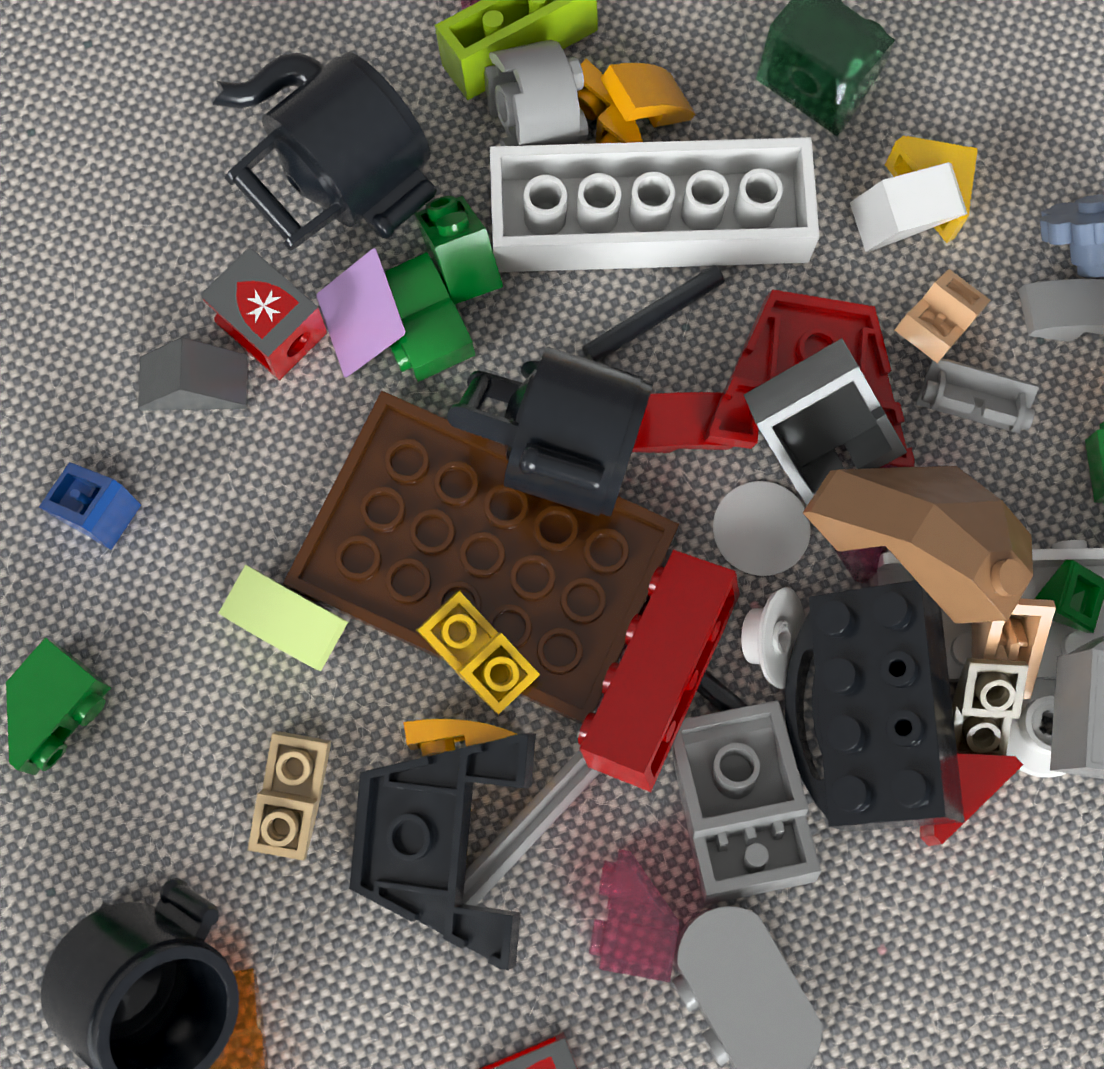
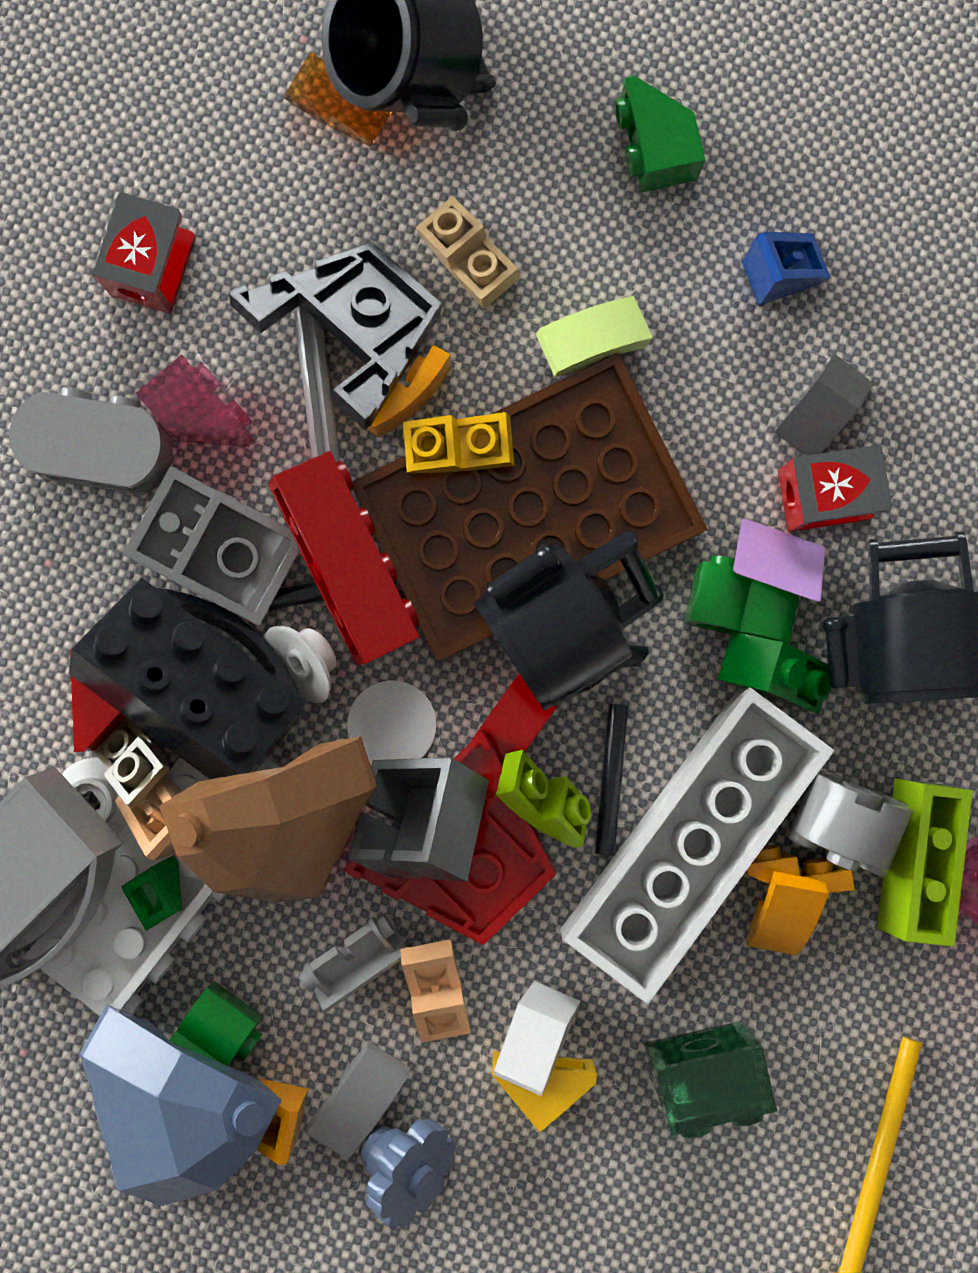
camera: 130 degrees right, 10 degrees up
(721, 343) = (546, 804): none -> lime slope

